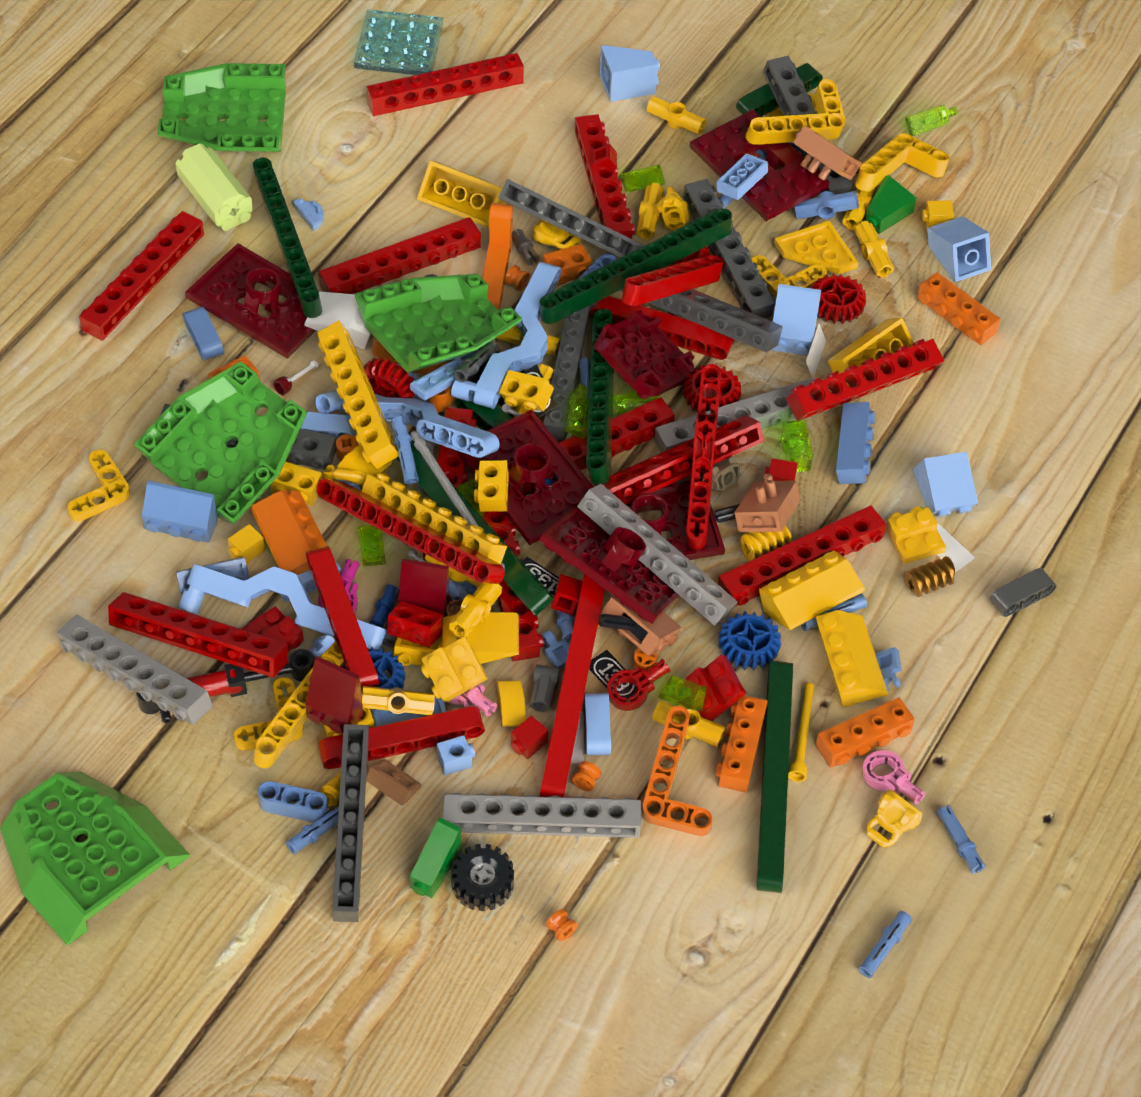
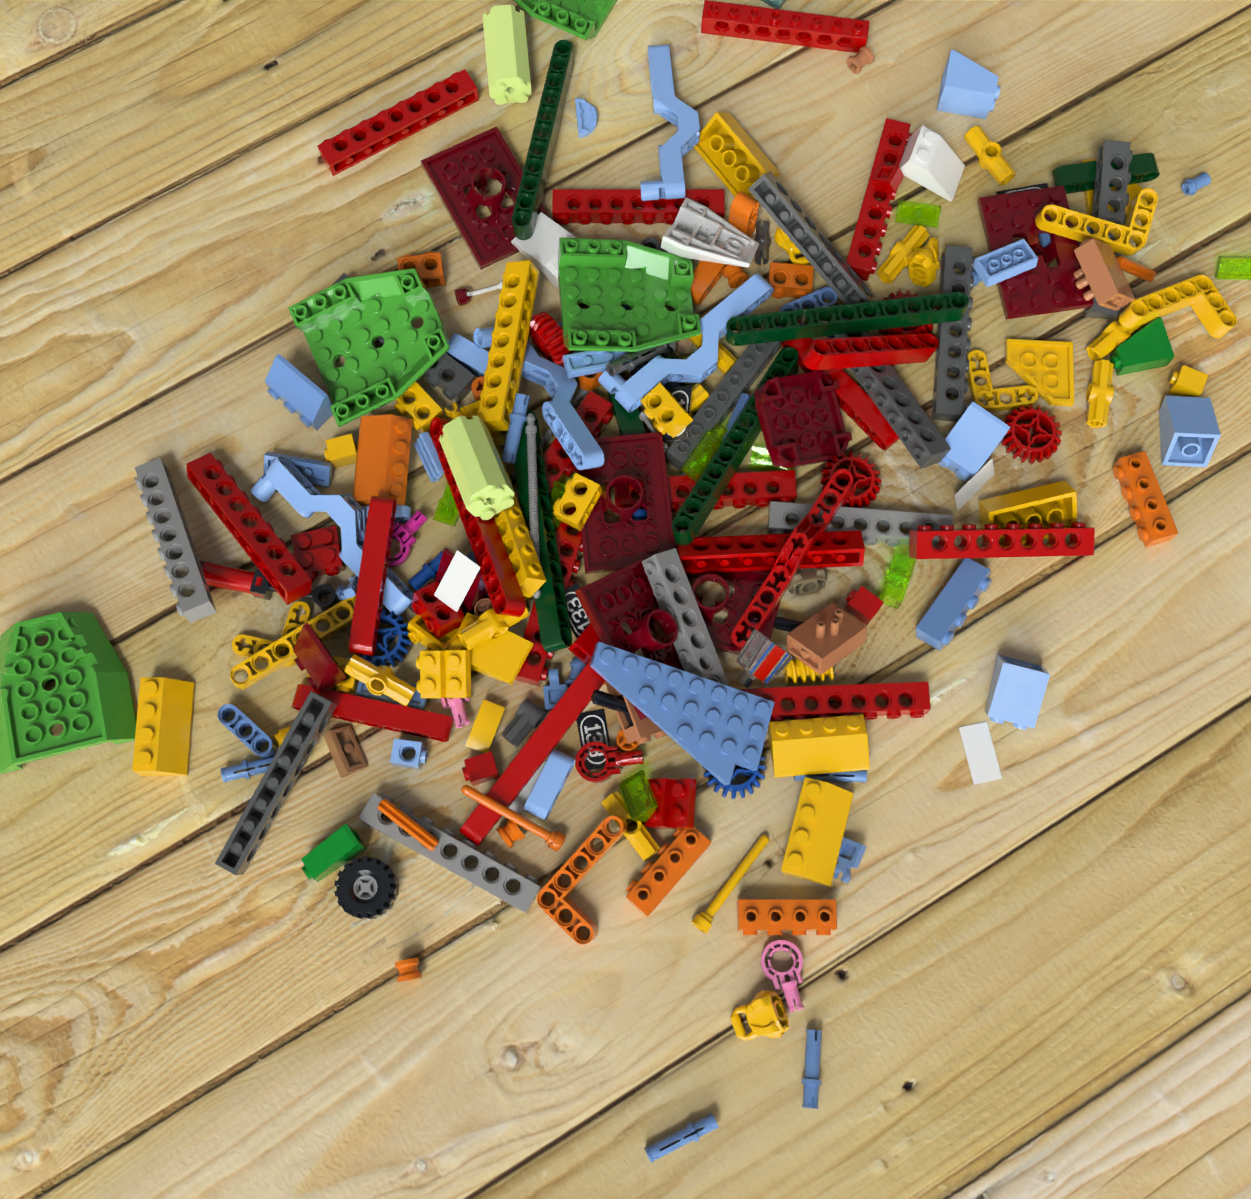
camera: 30 degrees right, 20 degrees up
(109, 486) = (259, 335): yellow beam -> none
(203, 333) = (420, 209): medium blue beam -> none
(209, 833) = (163, 727): none -> yellow slope
(330, 521) = (429, 456): none -> light blue tile
(392, 486) = (476, 467): none -> yellowish green brick
(410, 210) = (678, 113): none -> light blue beam
(425, 583) = (457, 581): none -> white sticker
(476, 253) = (707, 237): none -> white wedge
(493, 801) = (408, 824): none -> orange axle
(524, 87) = (857, 62): none -> nougat bush
(628, 763) = (553, 838): none -> orange piece
(633, 135) = (932, 163): none -> white slope
(707, 600) = (702, 716): none -> medium blue wing
(723, 542) = (761, 659): none -> clear torso
(775, 778) = (678, 918): dark green beam -> none
(827, 205) = (1080, 325): medium blue piece -> none
(852, 78) = (1191, 186): none -> medium blue pin
(853, 150) = (1136, 269): none -> orange axle
(915, 534) = (956, 729): yellow plate -> none
(930, 576) = (942, 782): pearl gold piece -> none
(1022, 592) = (1023, 841): dark grey beam -> none

